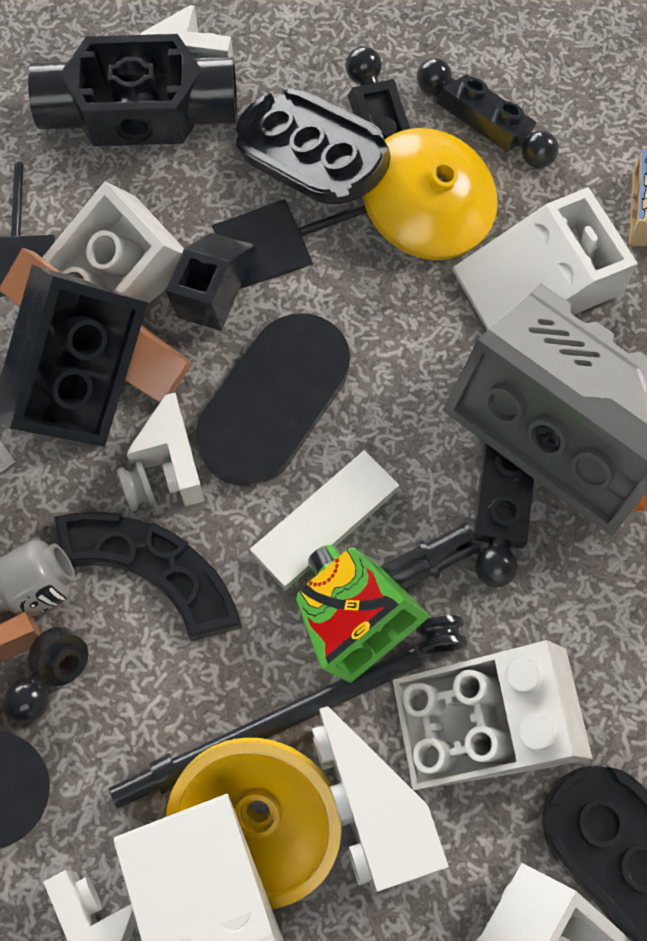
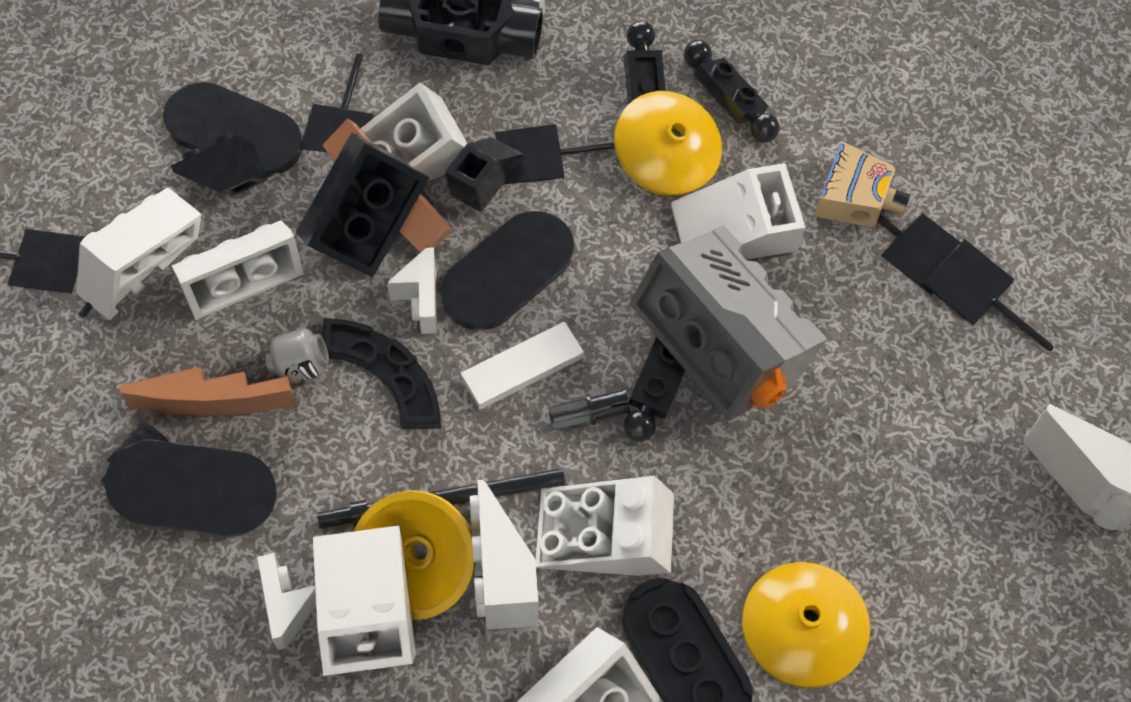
camera: 10 degrees right, 5 degrees down
(29, 697) = (275, 438): black plate -> none
(136, 486) = (388, 309): light grey bush -> none
(313, 146) = (586, 88): black tile -> none
(354, 611) = (523, 430): torso -> none
(441, 634) = (584, 463): black bush -> none

